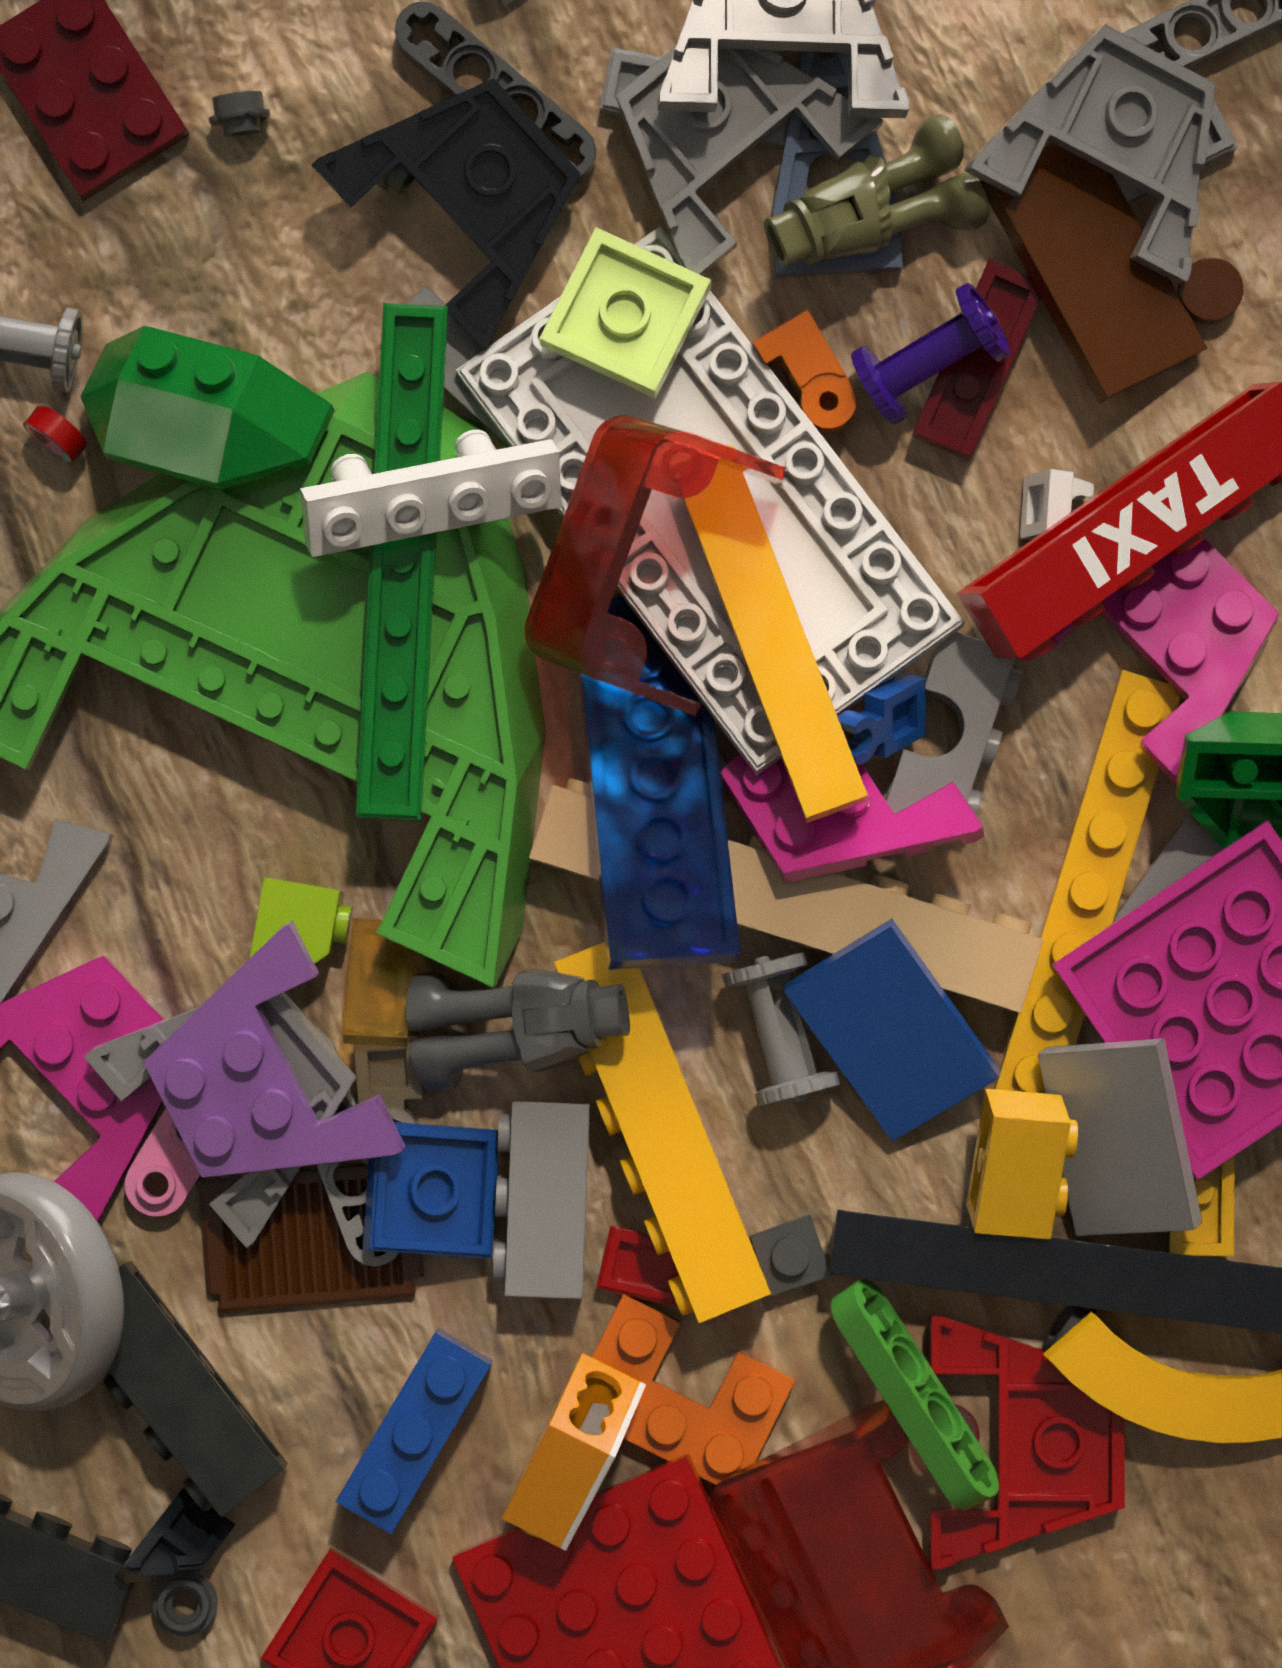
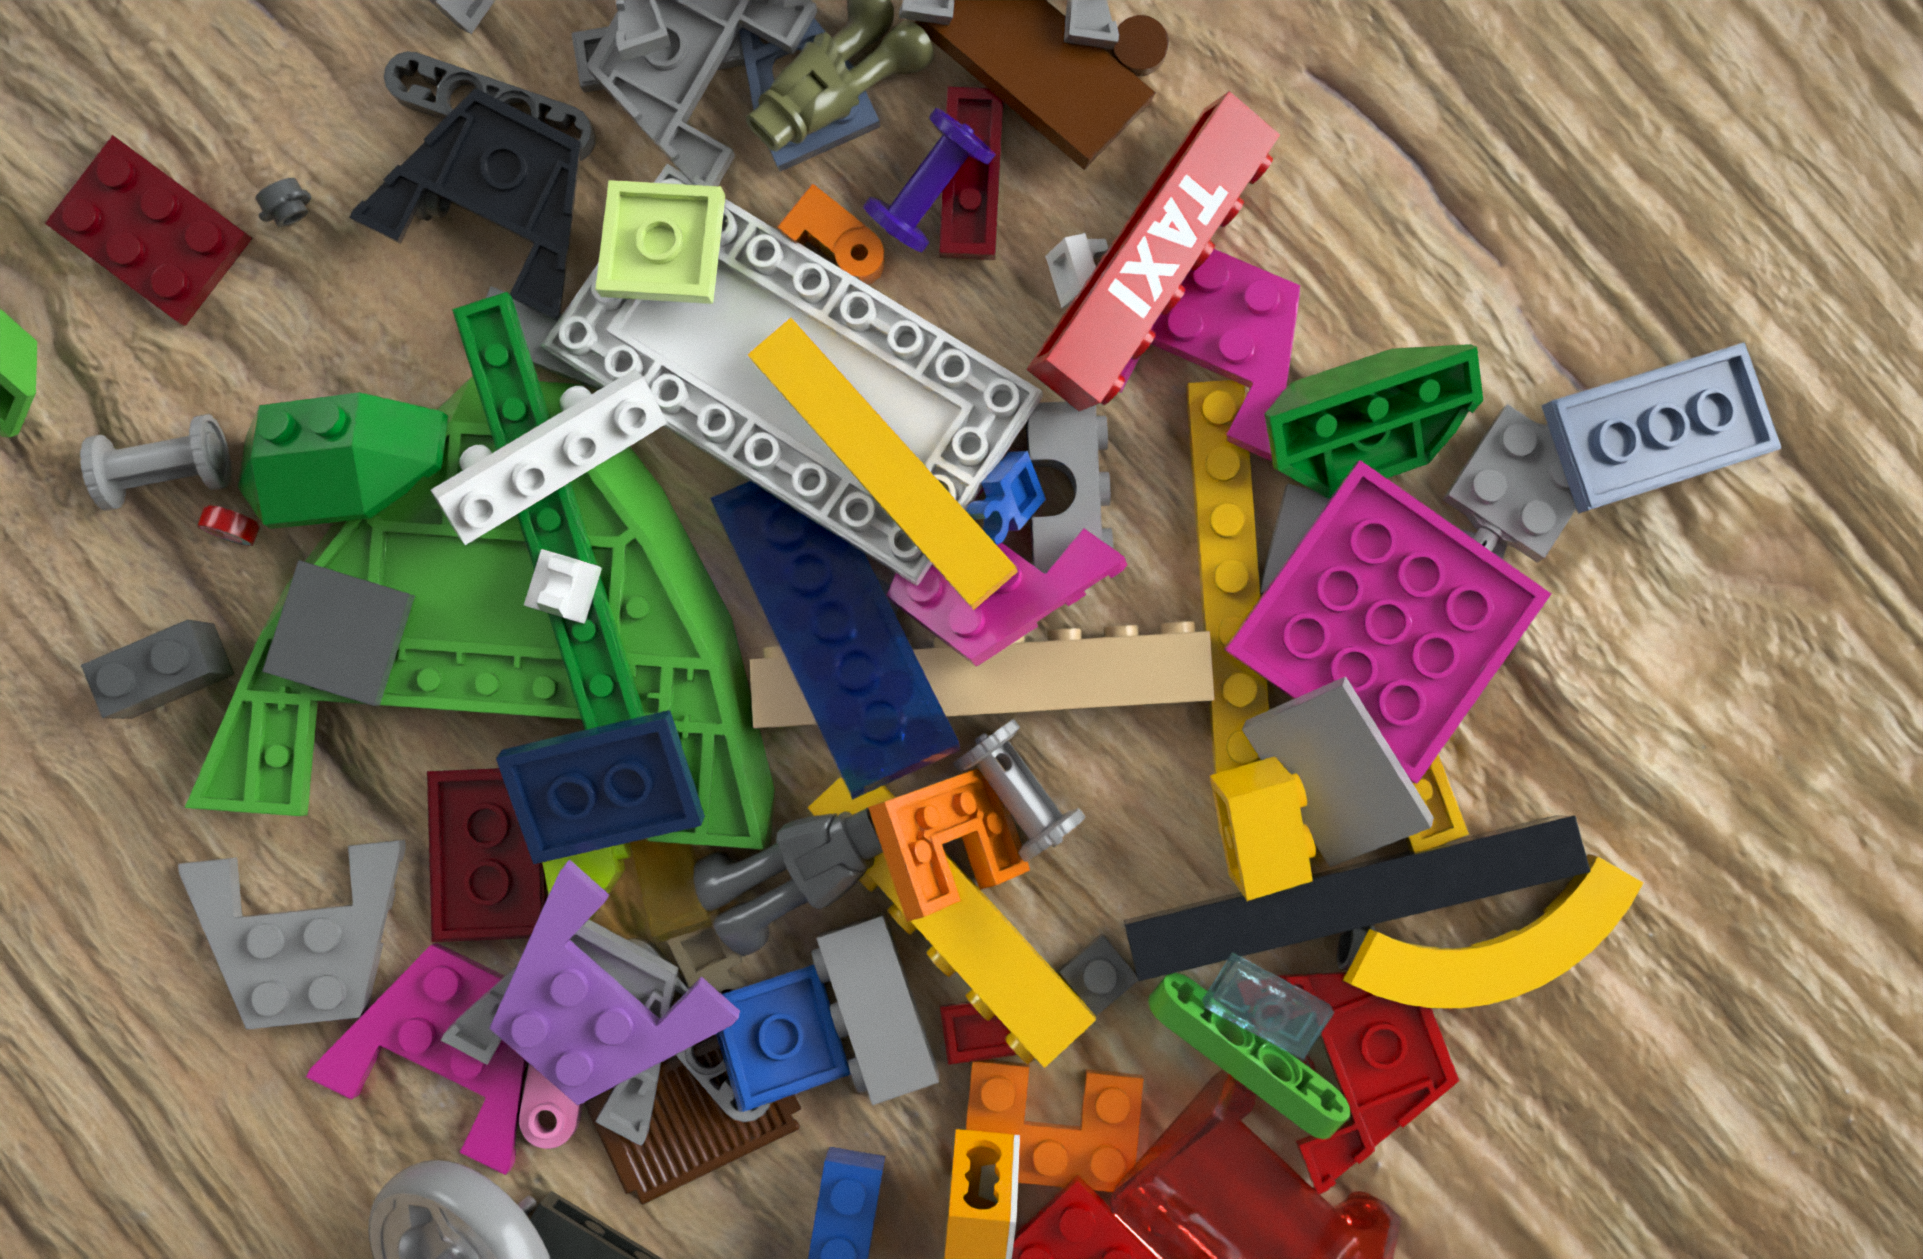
camera: 10 degrees left, 0 degrees up
(139, 595) = (338, 633): none -> dark grey tile
(196, 882) = (479, 860): none -> dark red tile
(353, 858) = (601, 787): none -> dark blue plate
(392, 636) = (562, 586): none -> white tile
(621, 468) = (702, 360): clear red windscreen -> none
(672, 1019) = (921, 821): none -> orange plate
(892, 1030) = (1112, 755): blue tile -> none
(954, 1351) = (1267, 1006): none -> clear light blue plate

